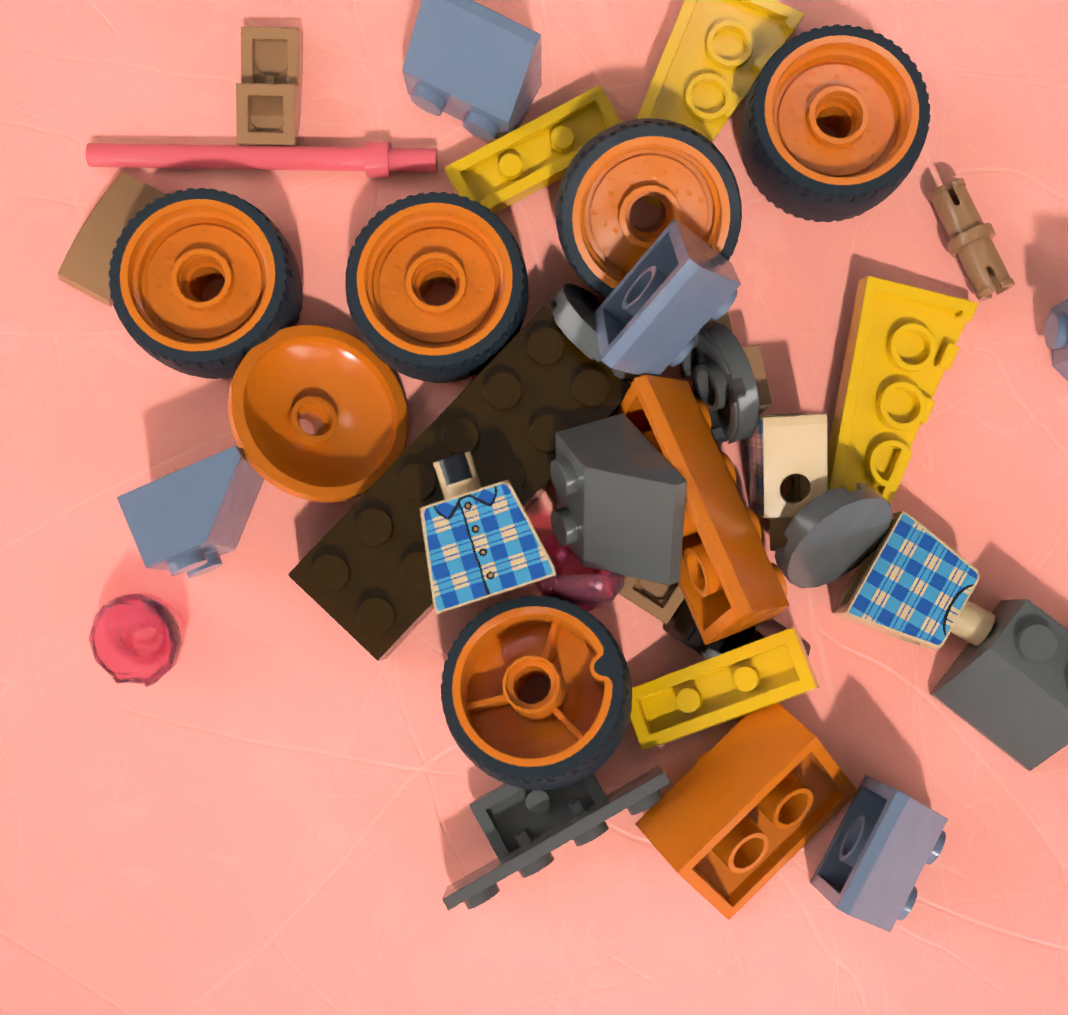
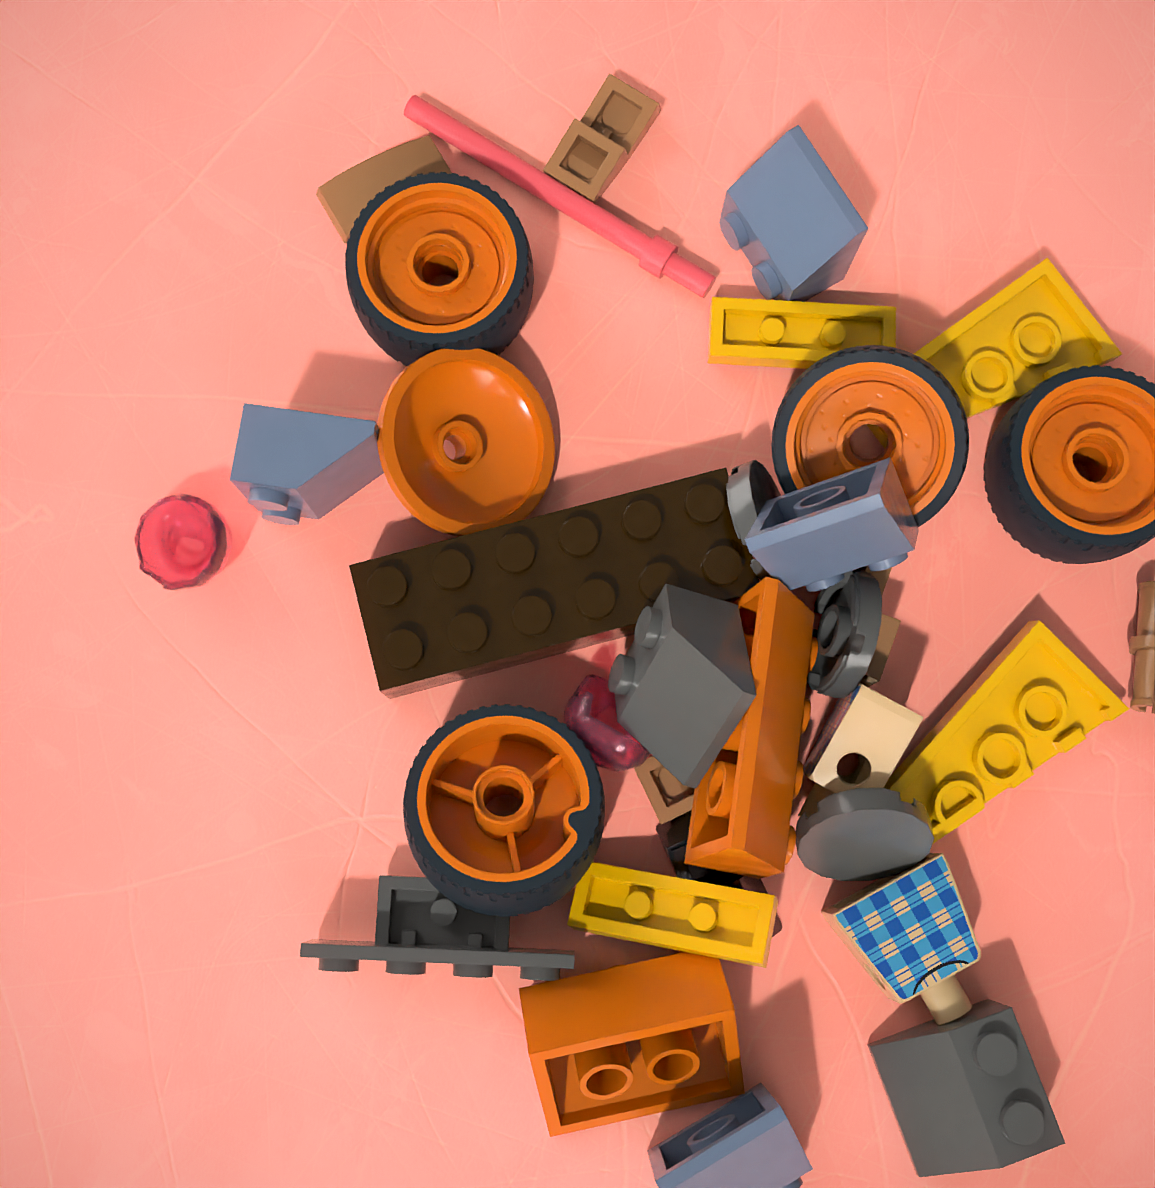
camera: 25 degrees right, 5 degrees down
(430, 243) = (646, 351): orange wheel -> none
(478, 538) = (536, 633): torso -> none

